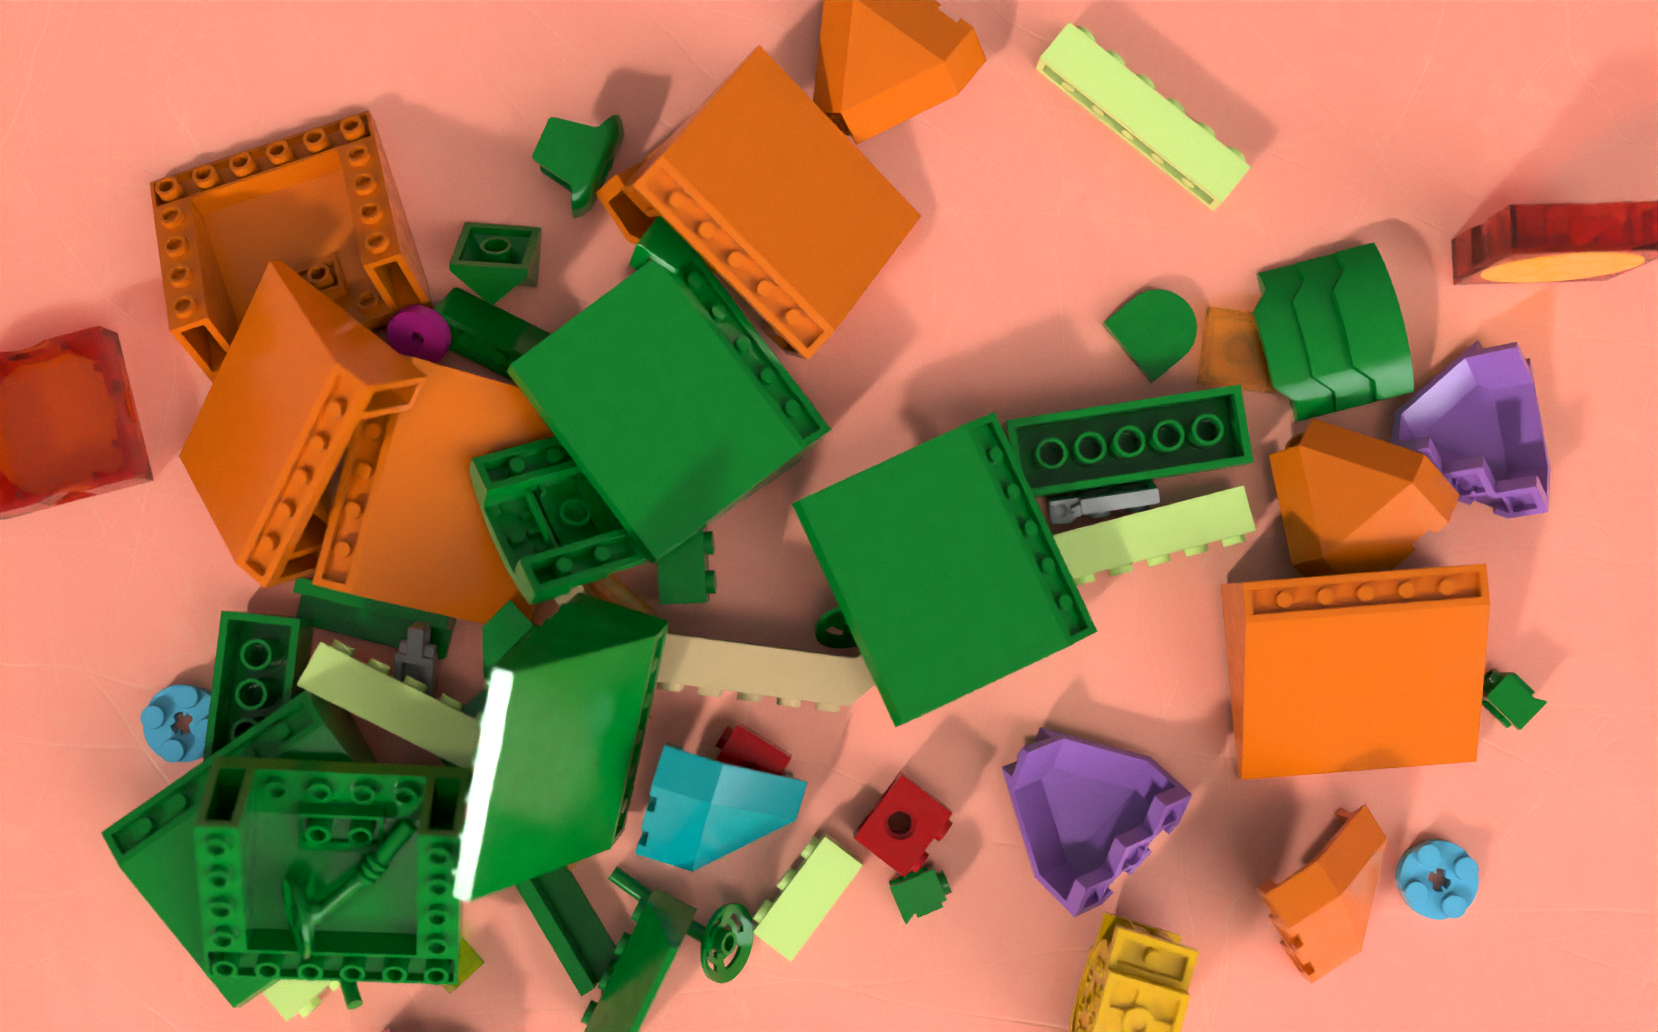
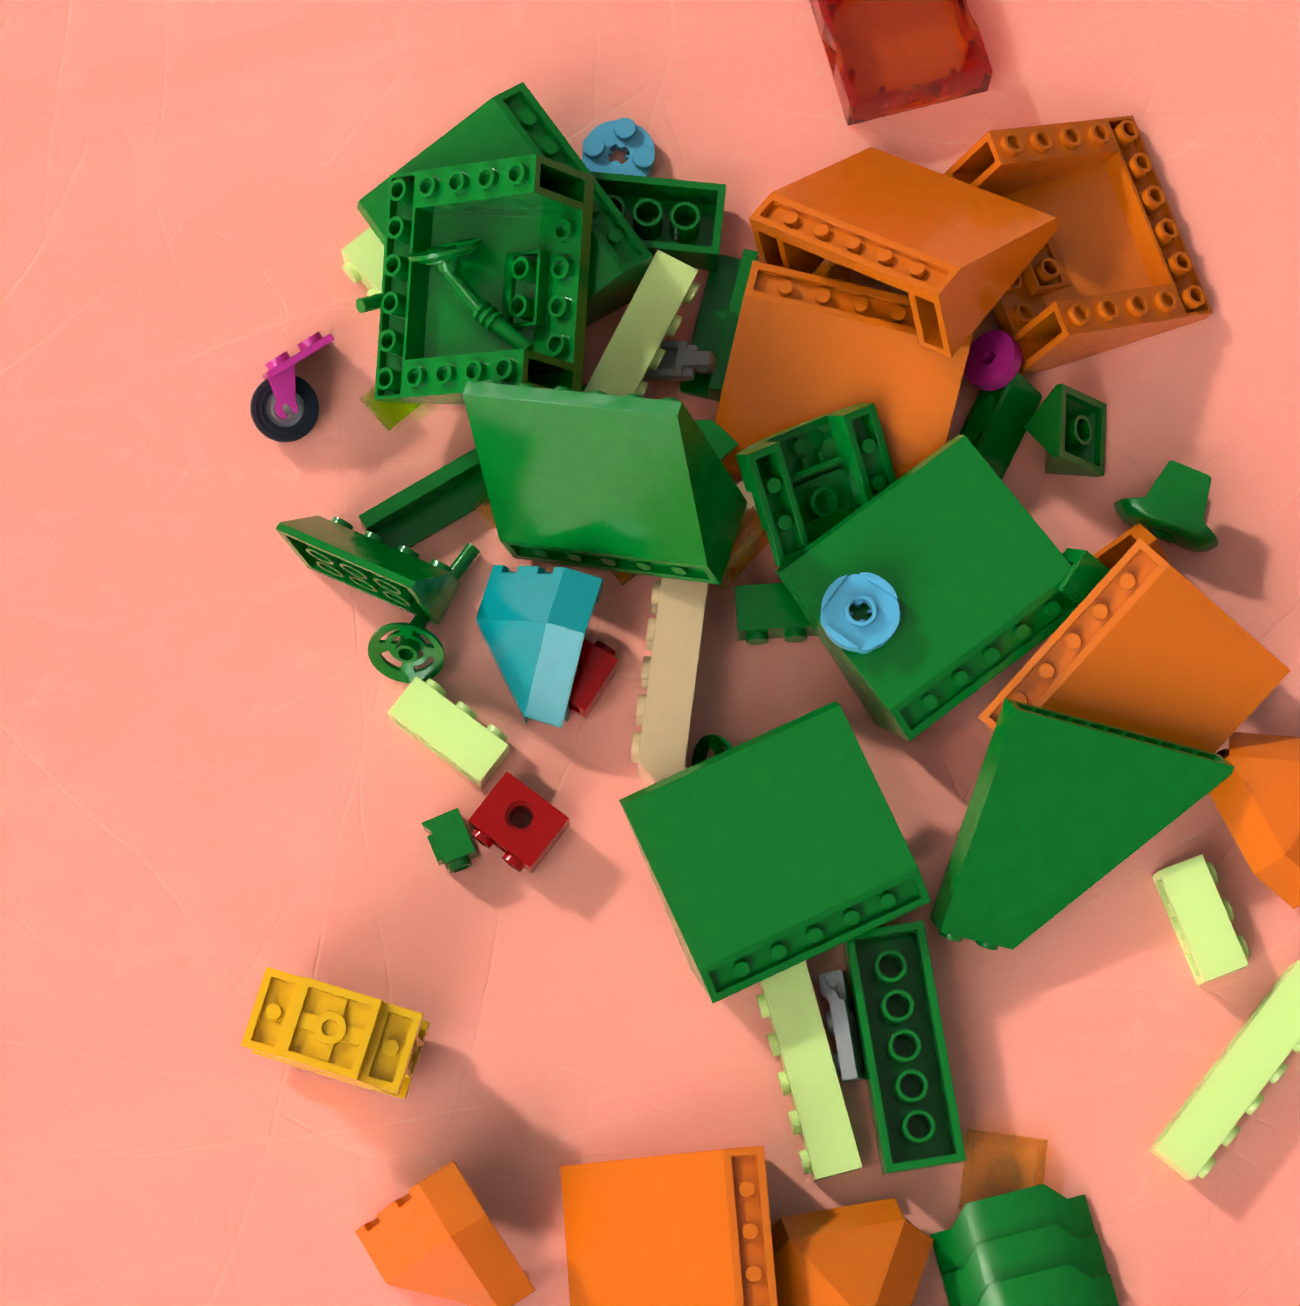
camera: 90 degrees right, 10 degrees down
(679, 481) = (854, 590): none -> medium azure plate
(901, 284) = (1056, 815): none -> green slope
(996, 149) = (1201, 919): none -> yellowish green brick
(1089, 813) = (528, 1007): medium lavender panel -> none
(1154, 331) = (1020, 1084): green tile -> none

